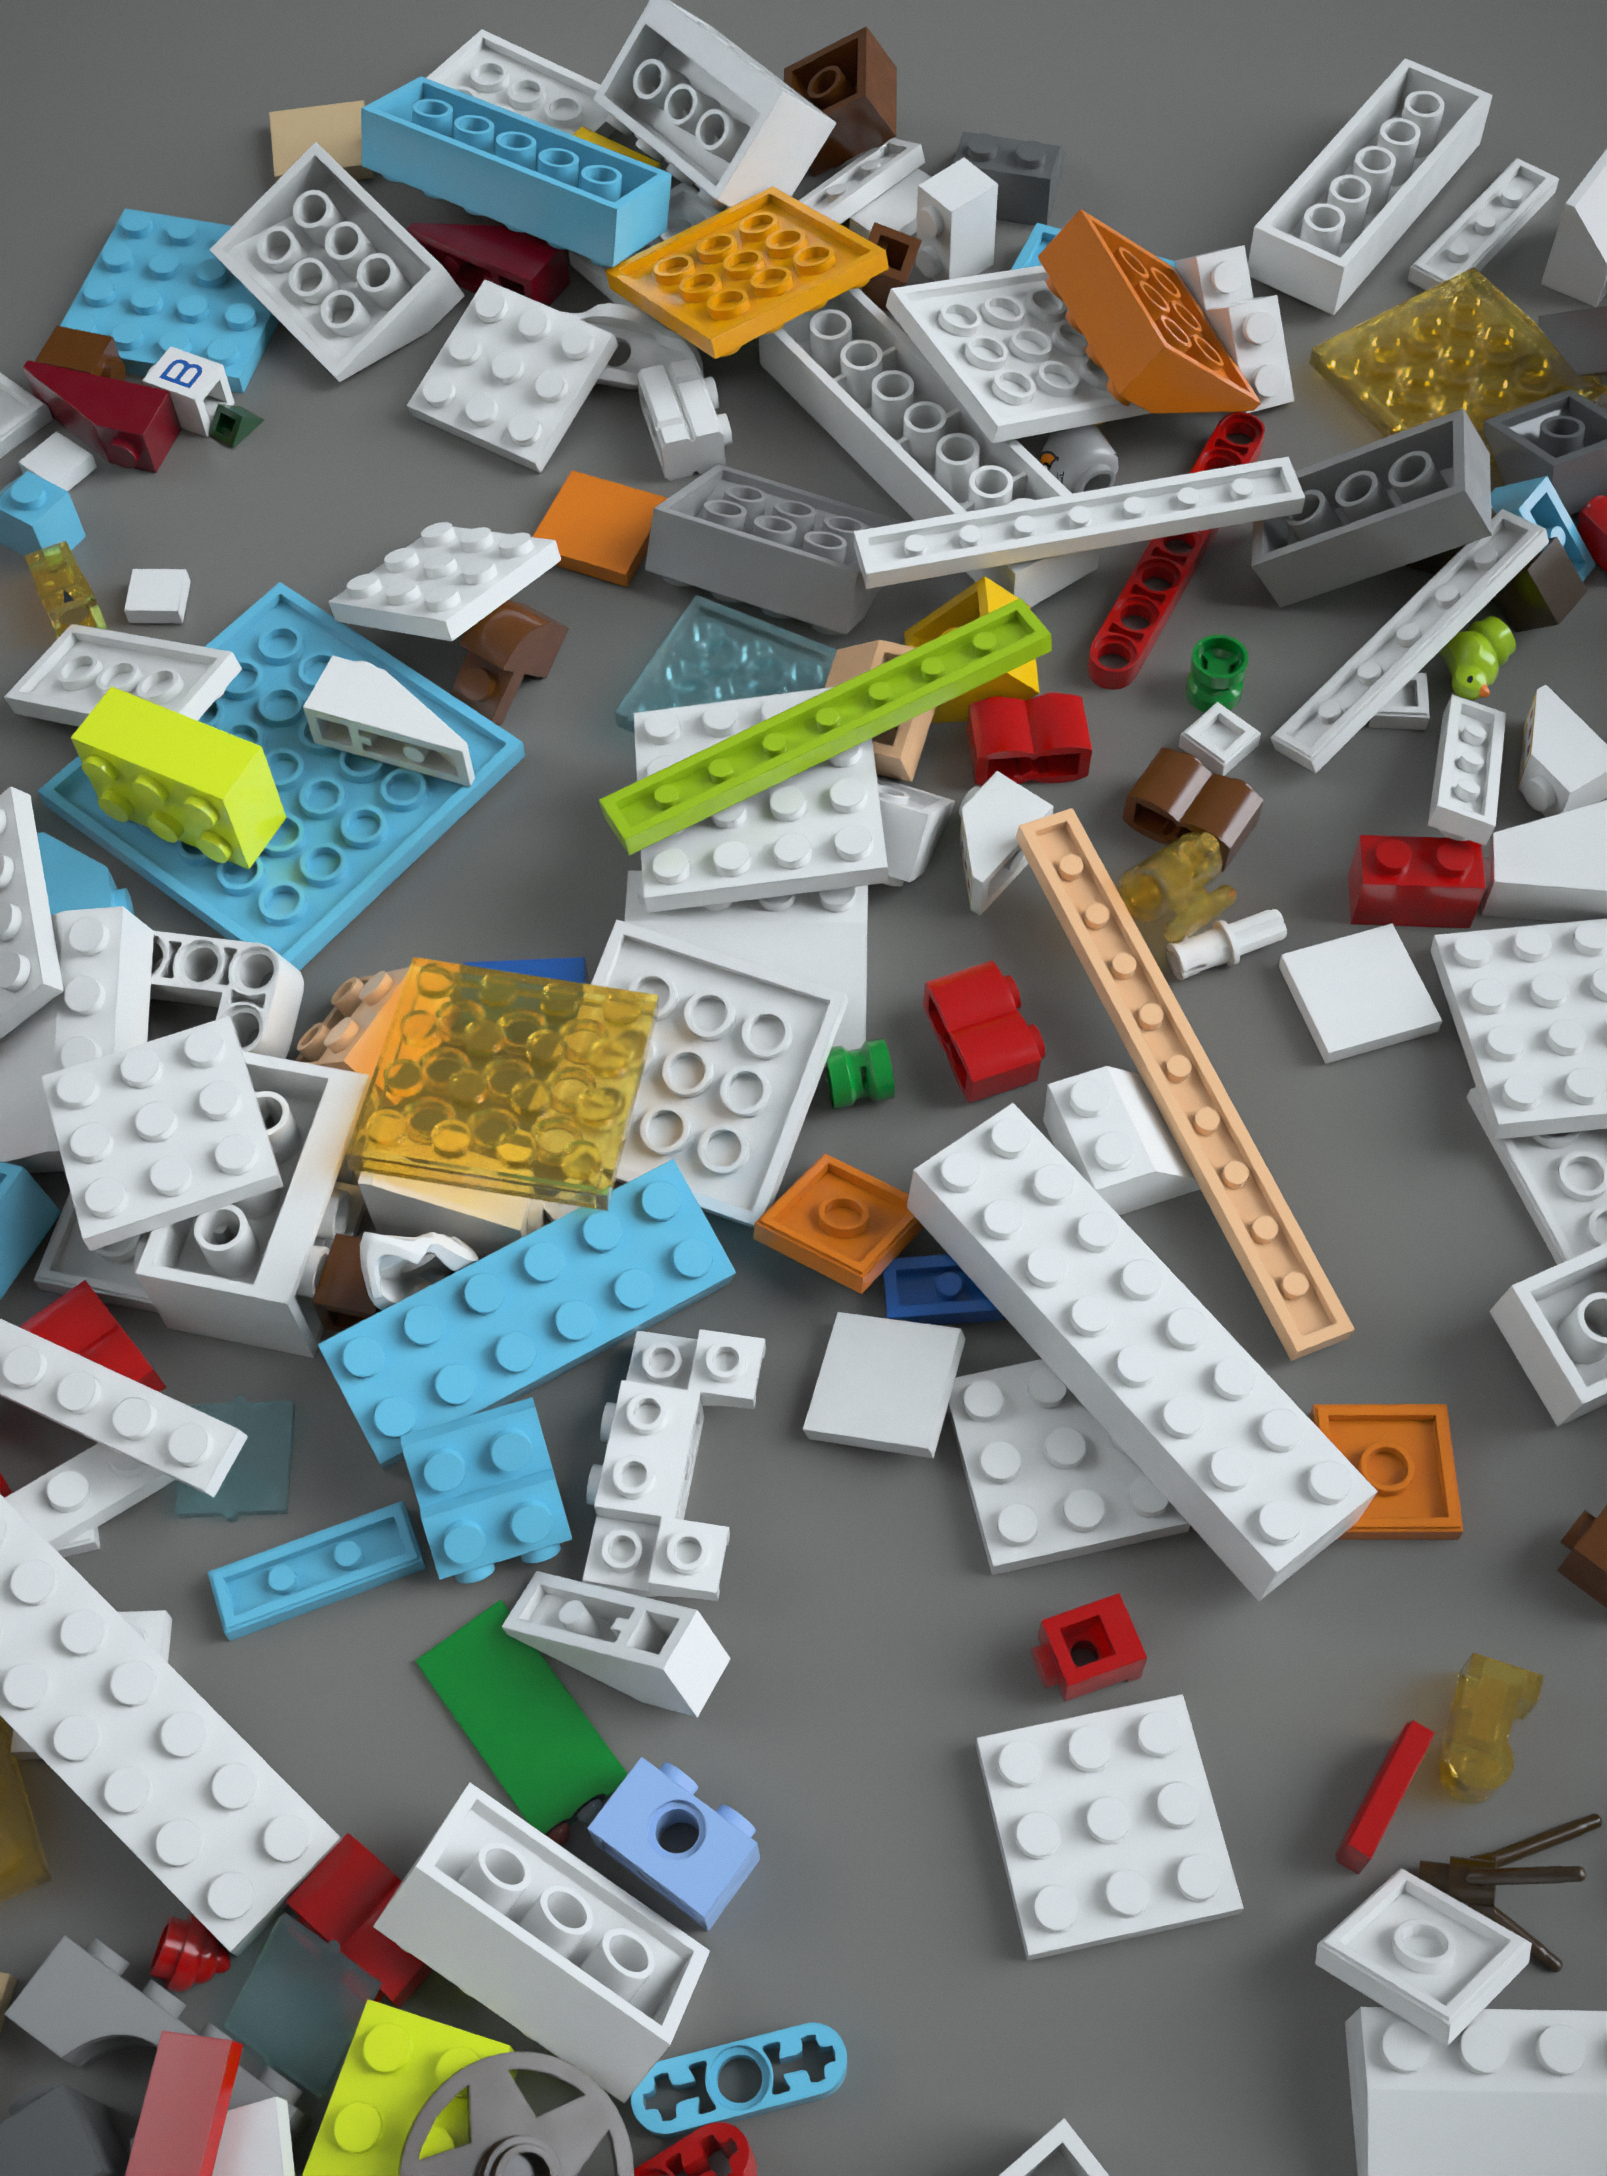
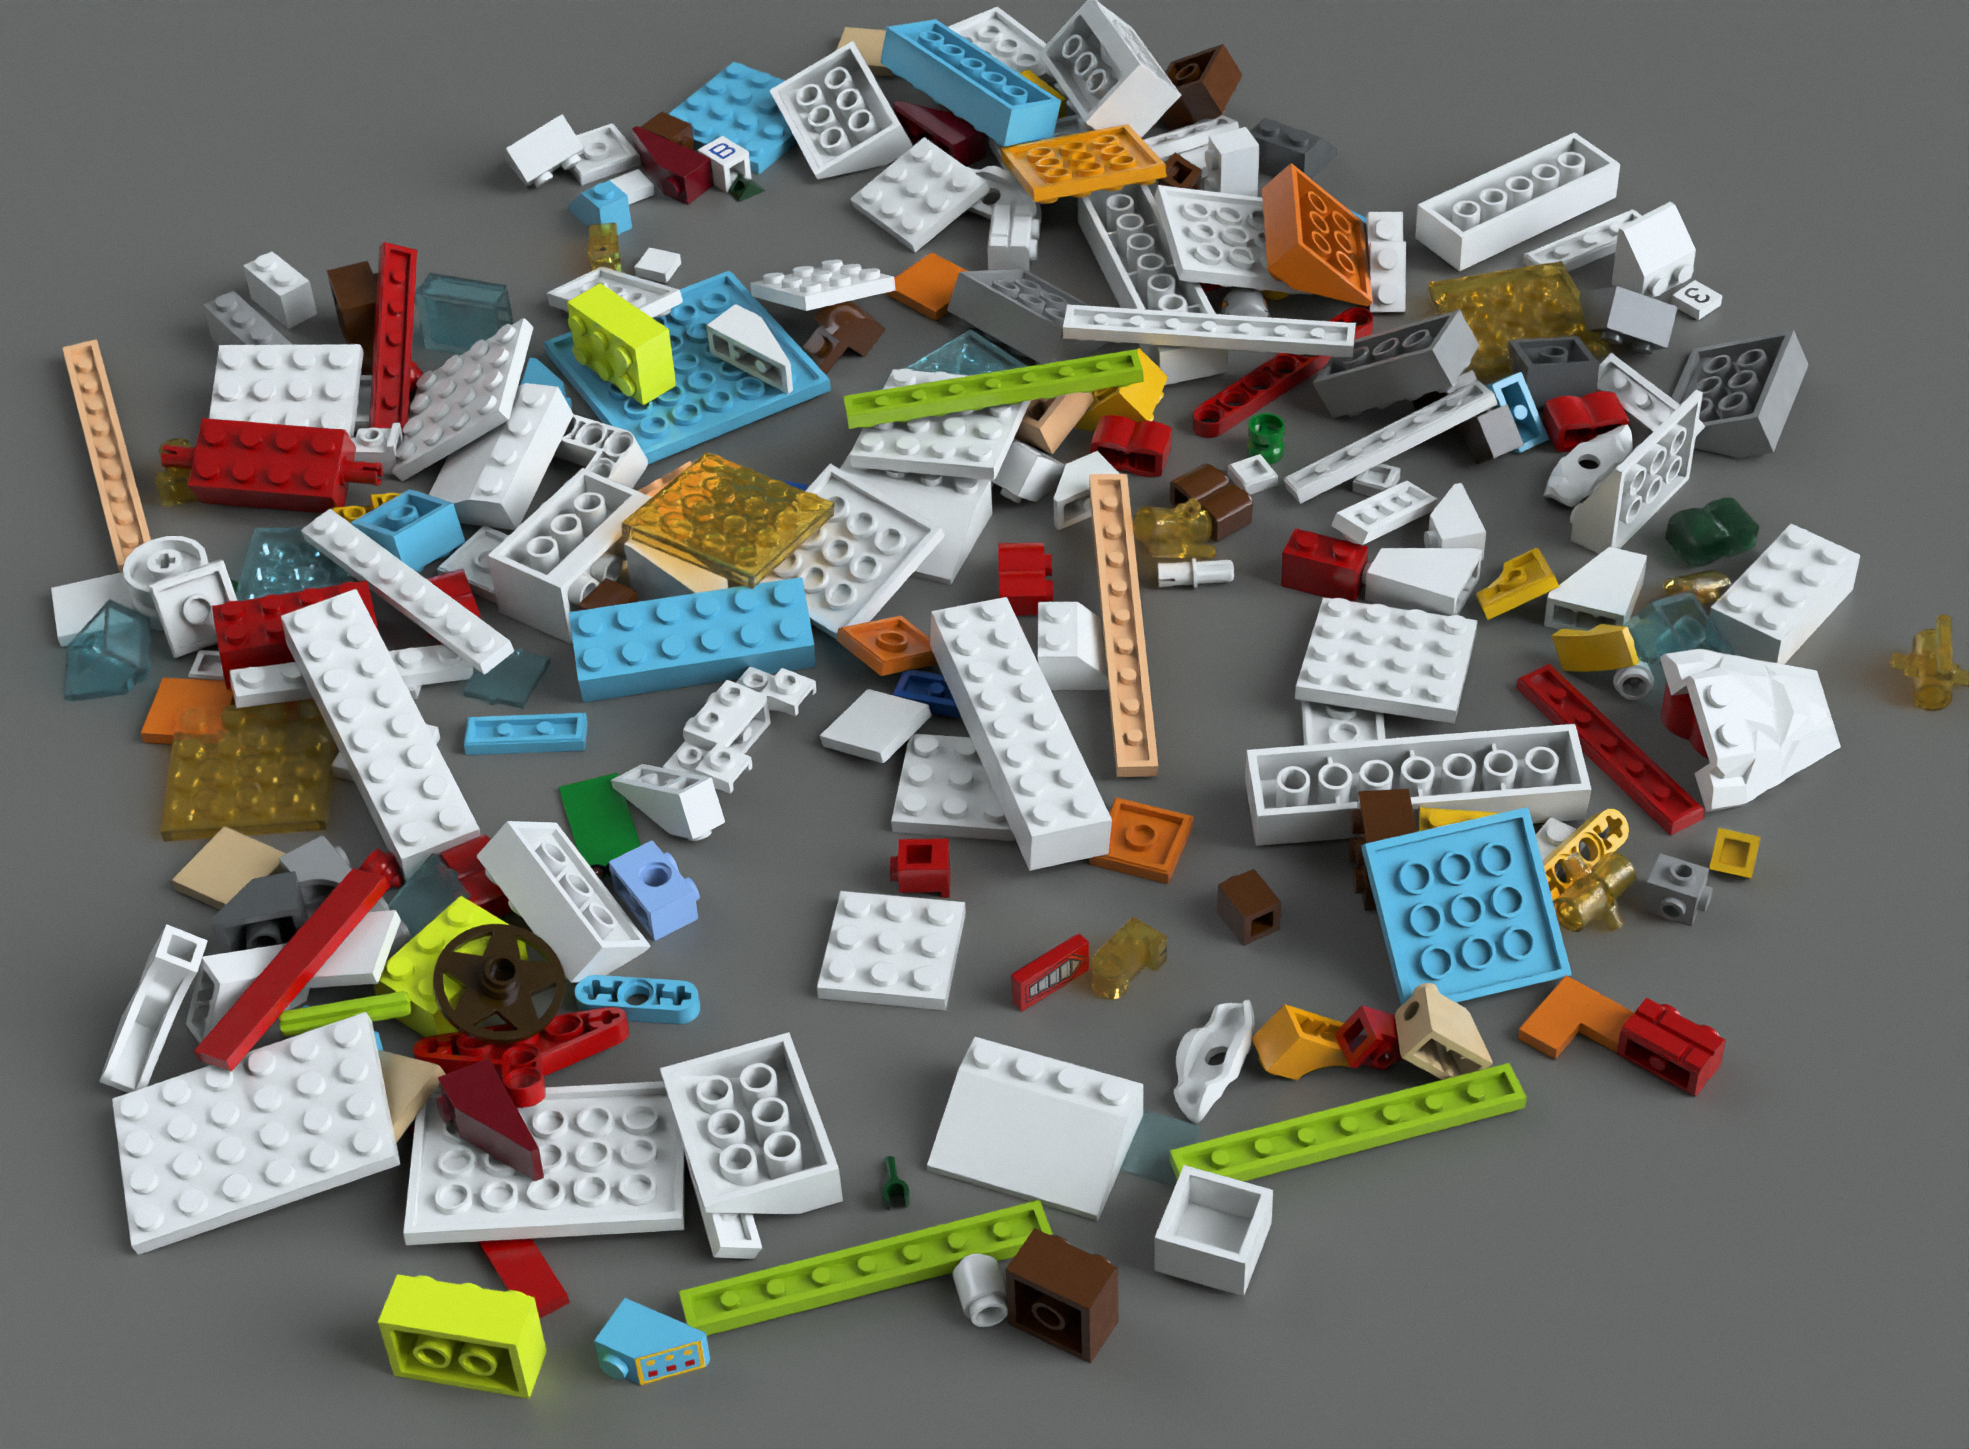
camera: 20 degrees right, 15 degrees down
(160, 1133) = (530, 495): white plate -> none
(405, 1265) = (624, 575): white piece -> none
(486, 1491) = (630, 710): medium azure plate -> none
(845, 1078) = (939, 581): green wheel -> none
(1359, 993) = (1262, 617): white tile -> none
(1423, 1955) = (1025, 1030): white tile -> none
(1476, 656) = (1434, 464): lime animal -> none
(1476, 1878) = (1083, 1023): dark brown plant -> none

